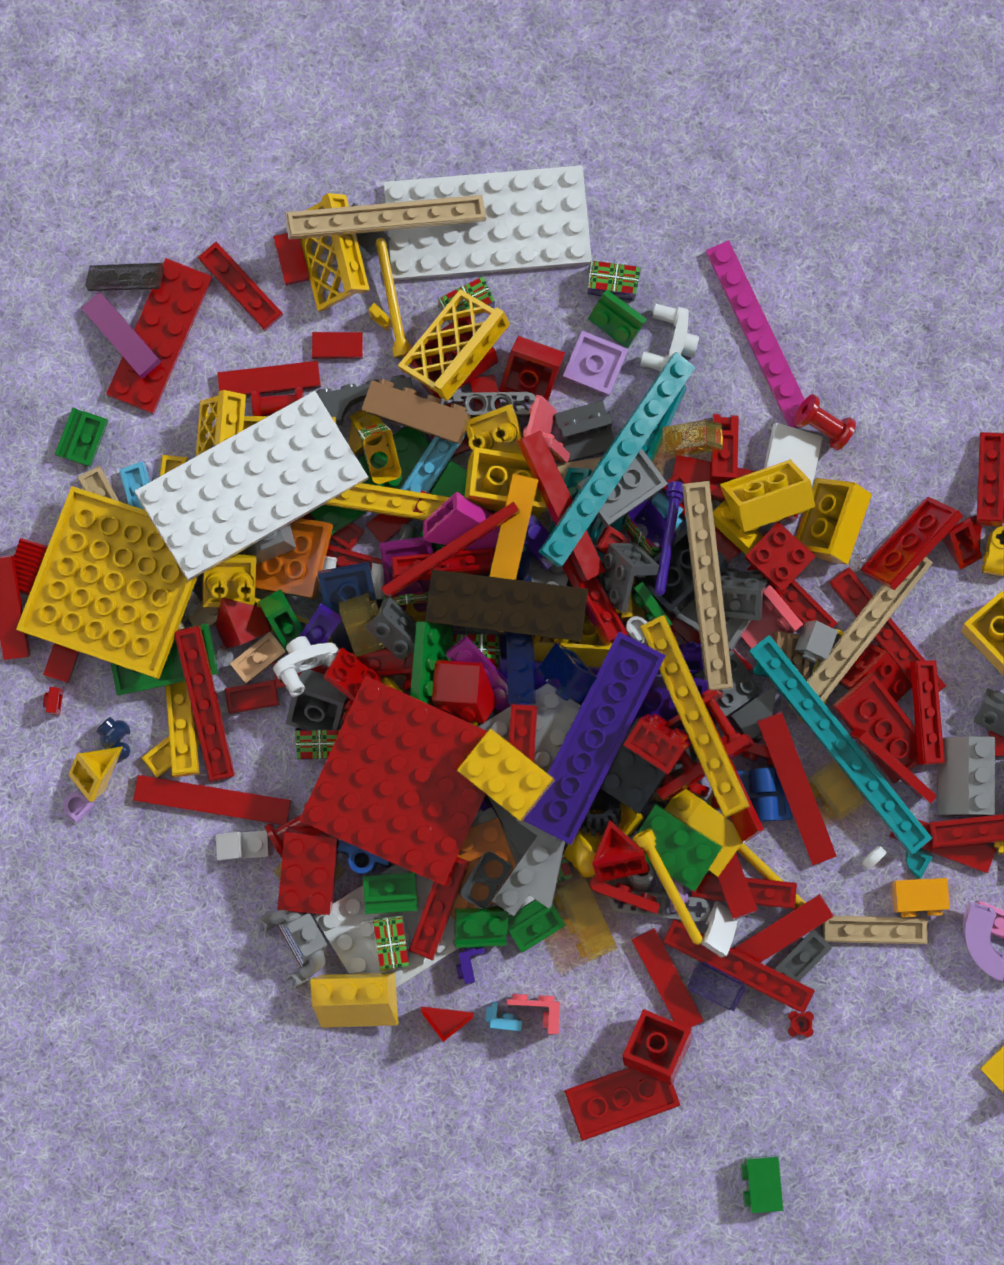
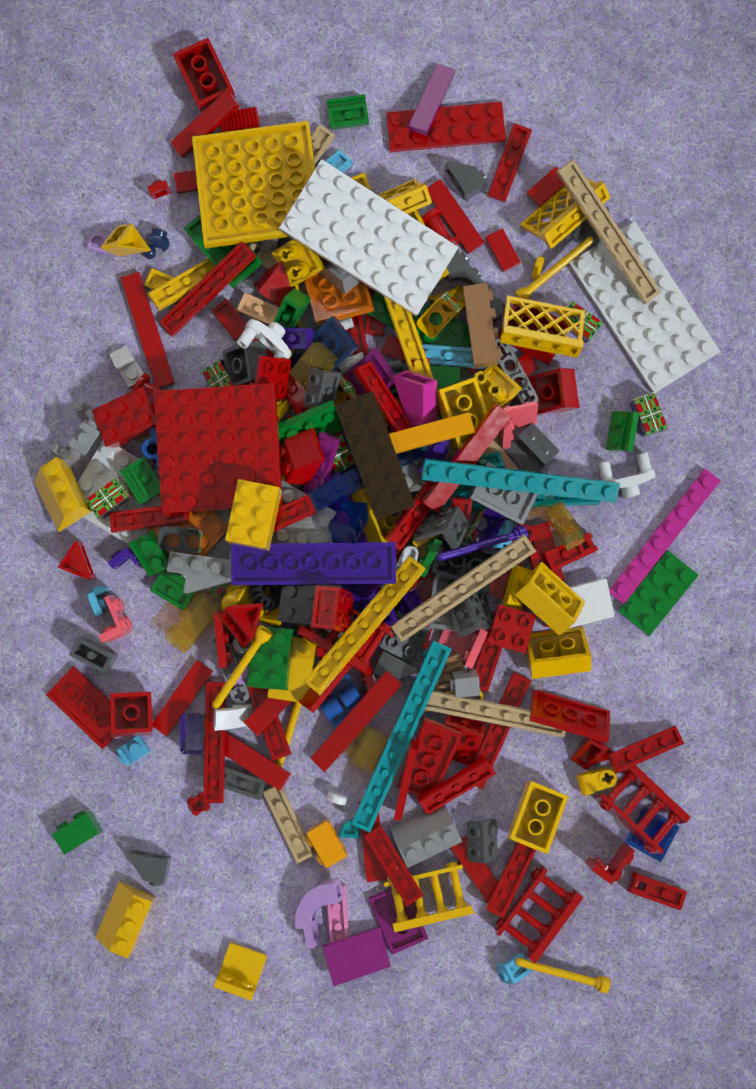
camera: 70 degrees right, 5 degrees up
(124, 277) = (473, 80): clear smoke plate -> none
(233, 343) = (466, 178): none -> dark grey slope
(451, 549) = (393, 397): red tile -> none
(565, 1056) = (93, 654): none -> dark grey brick
(595, 363) = (583, 432): lavender plate -> none
(699, 1069) = (132, 750): none -> medium azure bracket
(821, 370) = (658, 593): none -> green plate
(837, 430) = (624, 611): red piece -> none
(847, 1115) = (151, 866): none -> dark grey slope
(893, 1179) = (124, 919): none -> yellow slope

